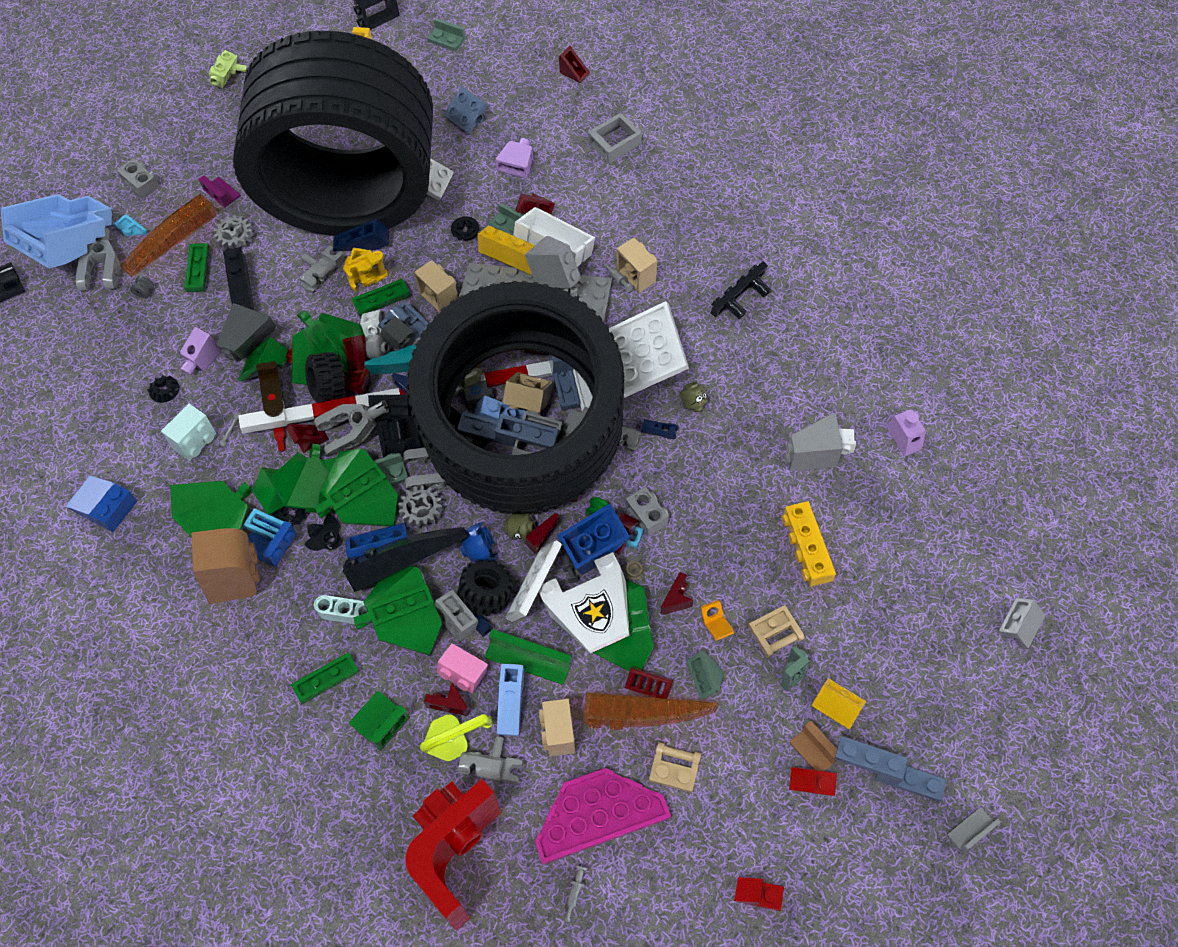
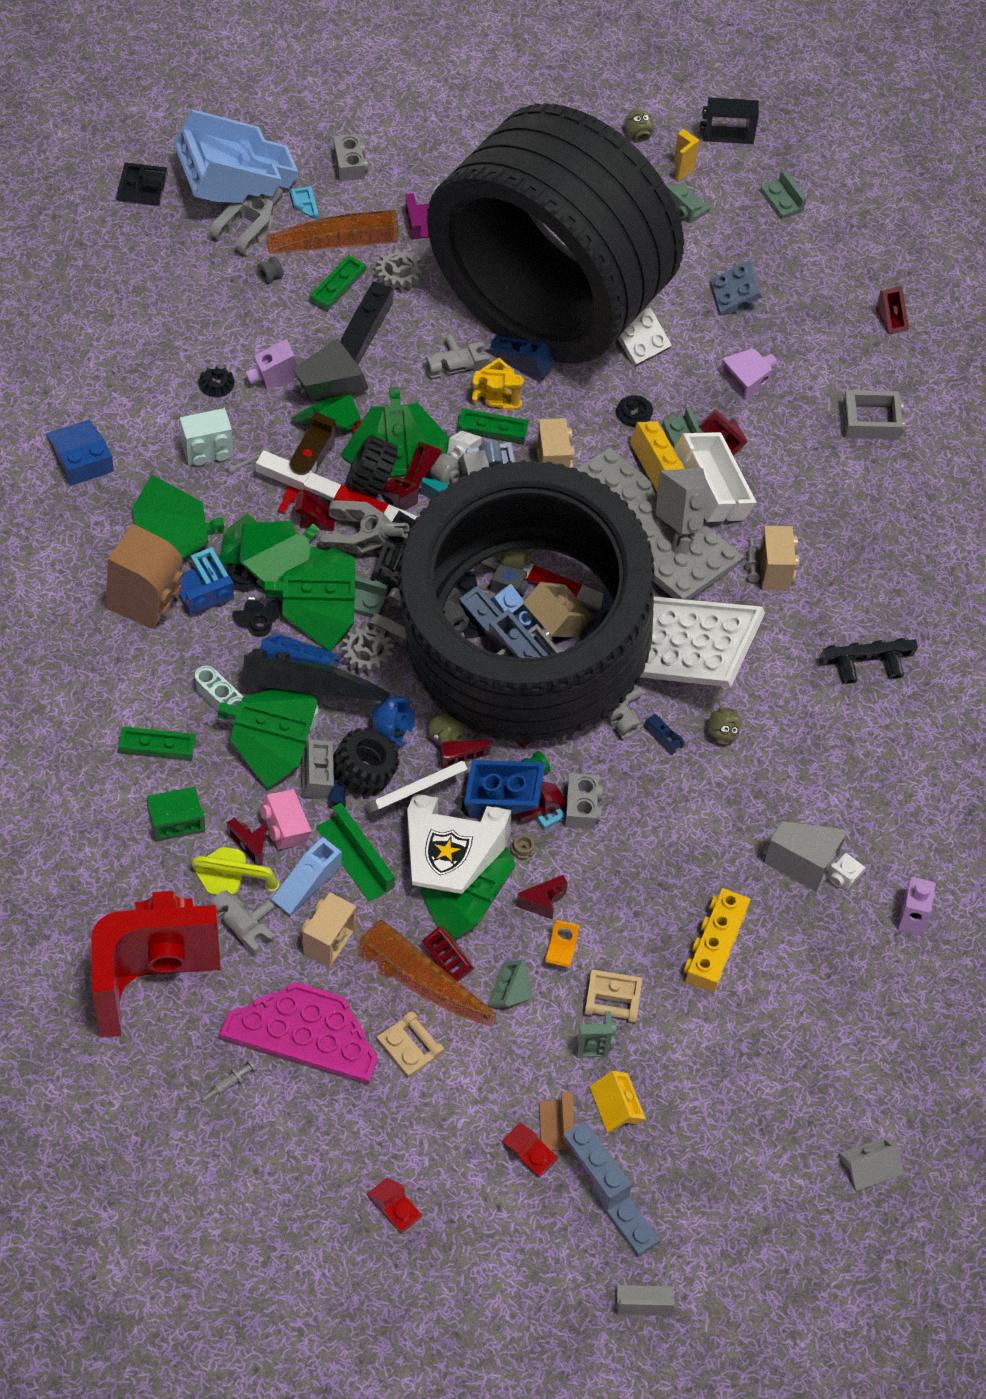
camera: 30 degrees right, 5 degrees down
(223, 68) = (518, 94): yellowish green brick -> none

